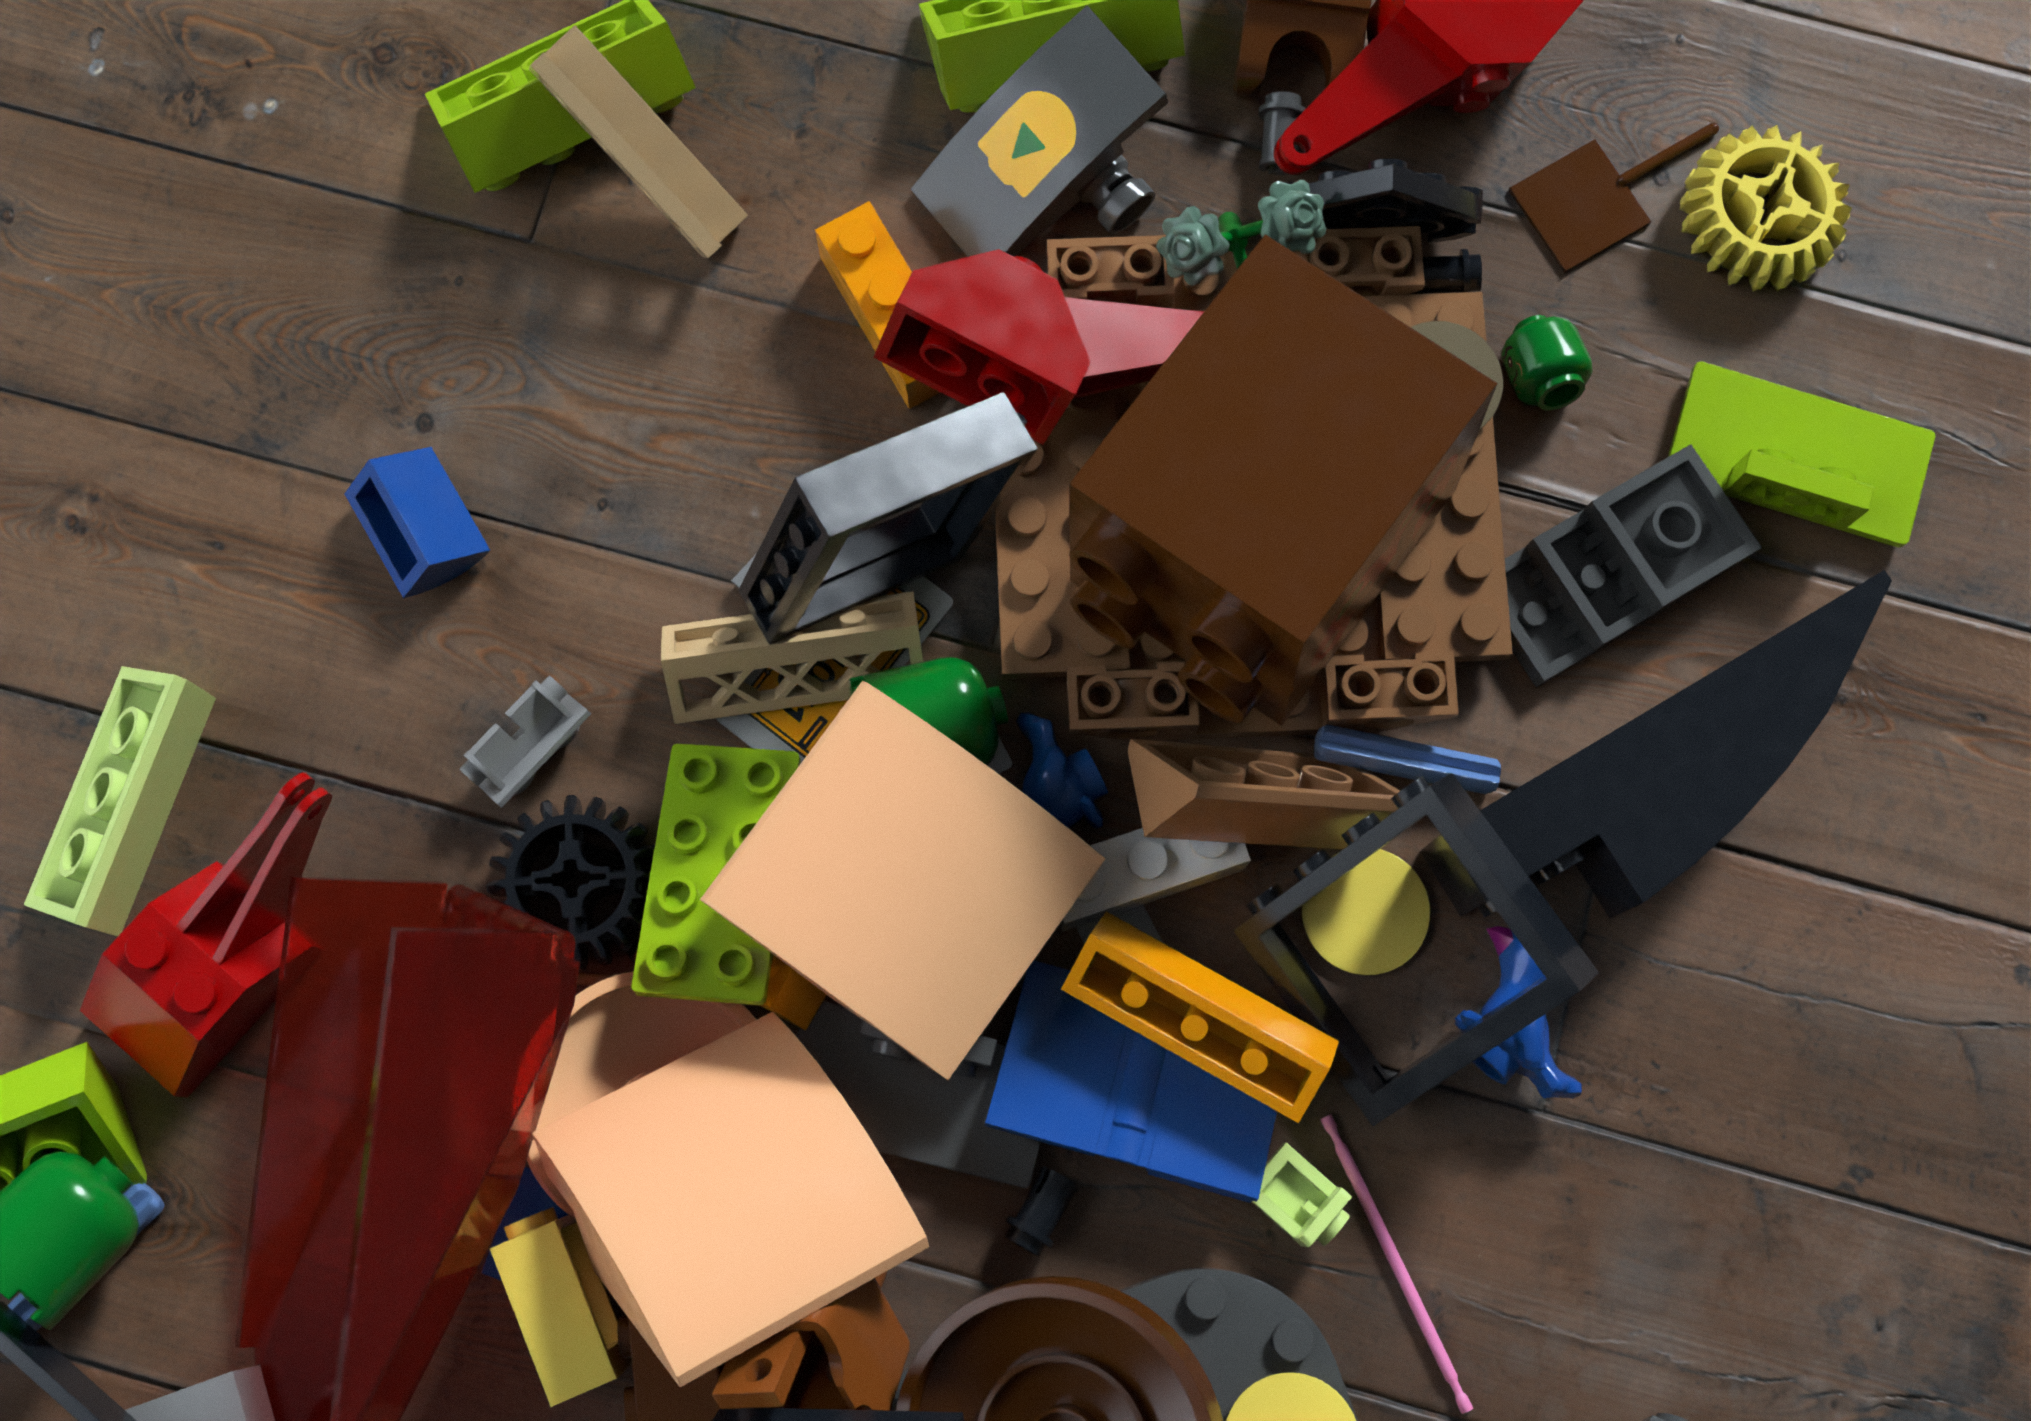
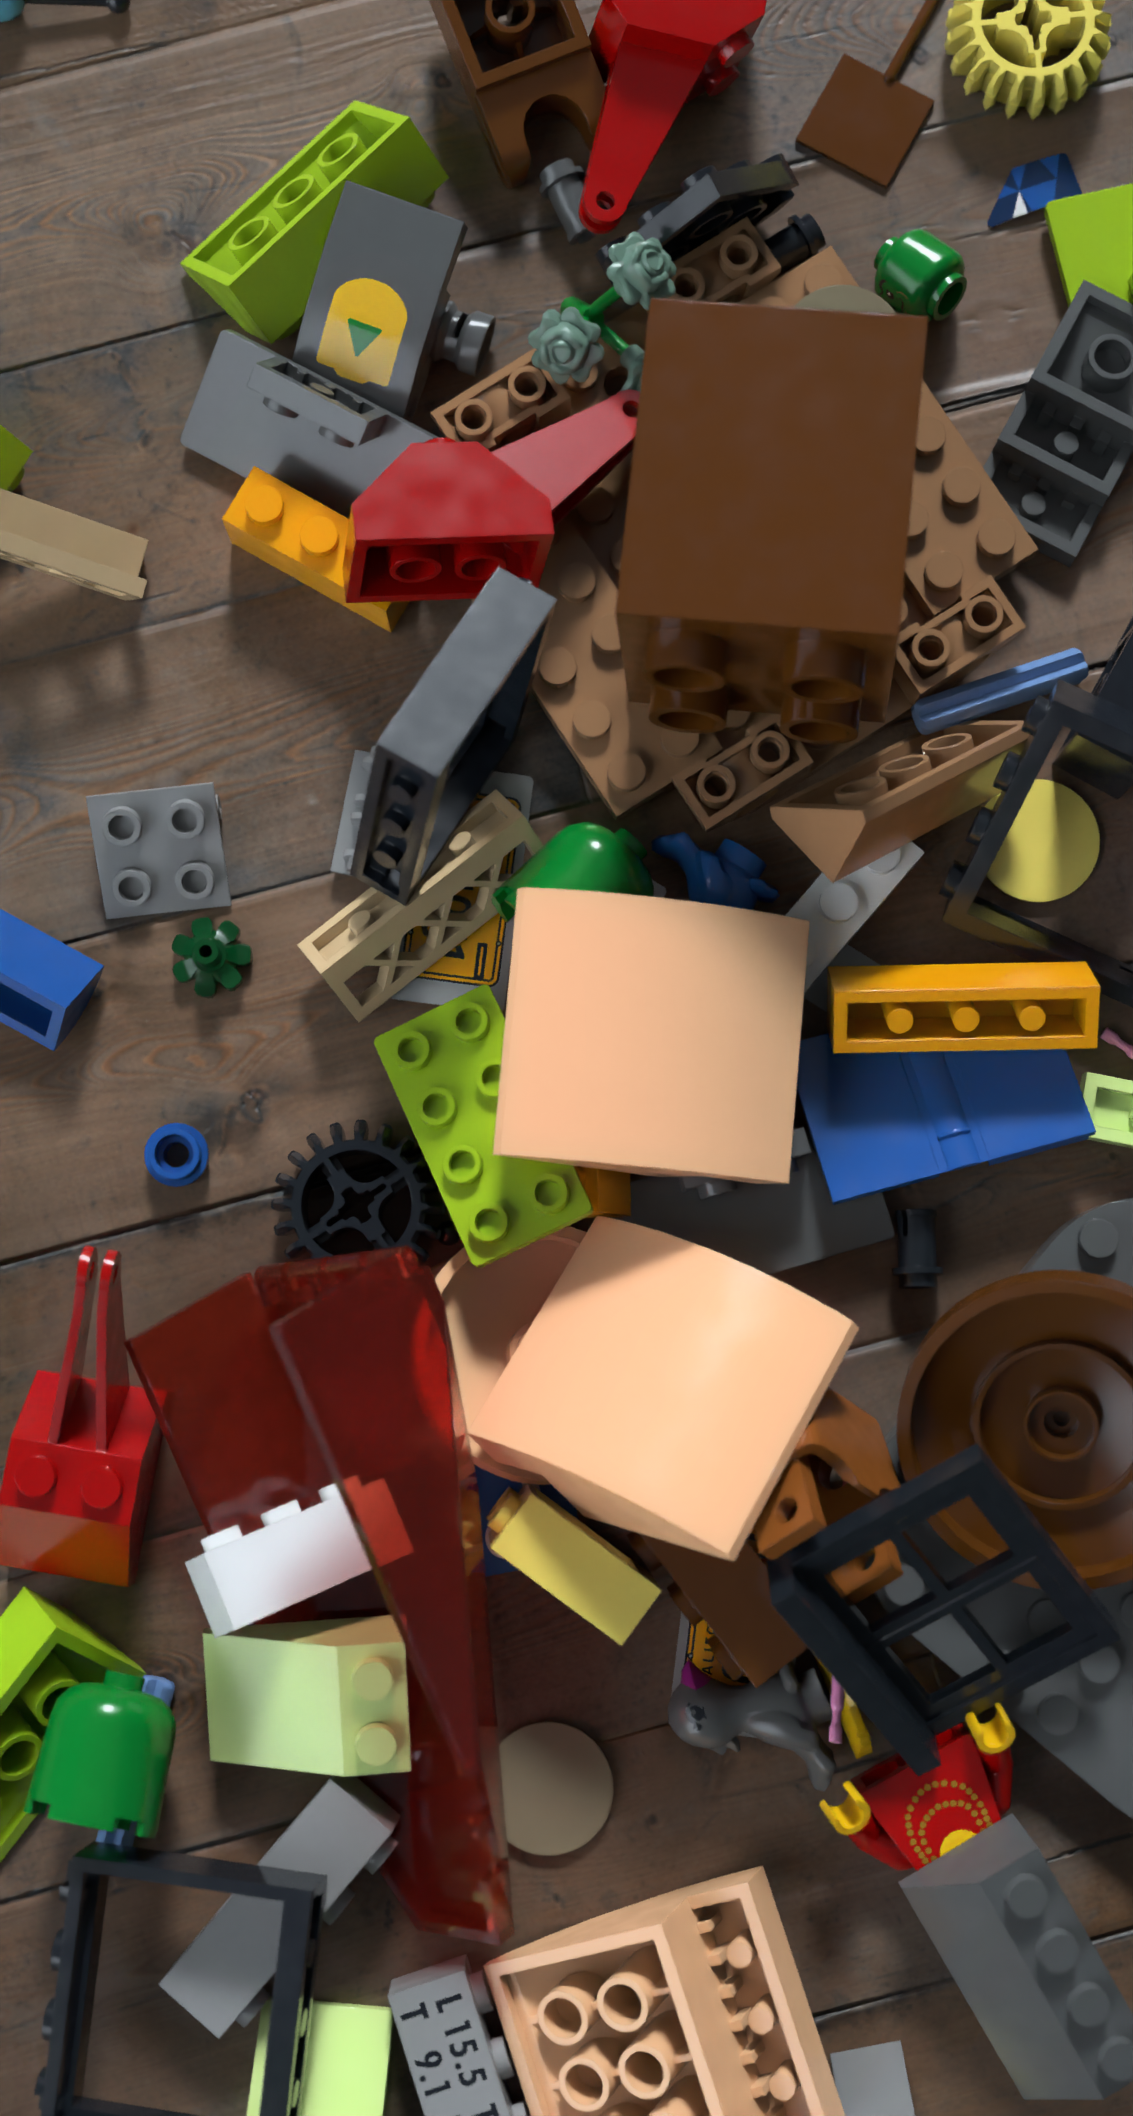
camera: 30 degrees left, 5 degrees up
(258, 1287) = (310, 1696): none -> yellowish green slope
(289, 1148) = (278, 1564): none -> white brick
(434, 739) = (158, 1146): none -> blue plate
(508, 764) = (249, 1084): light grey hinge -> none
(586, 595) = (219, 965): none -> dark green plant
(597, 479) = (159, 850): none -> light grey hinge
(924, 181) = (292, 424): none -> dark grey bracket
(1697, 341) = (1033, 186): none -> dark blue sticker

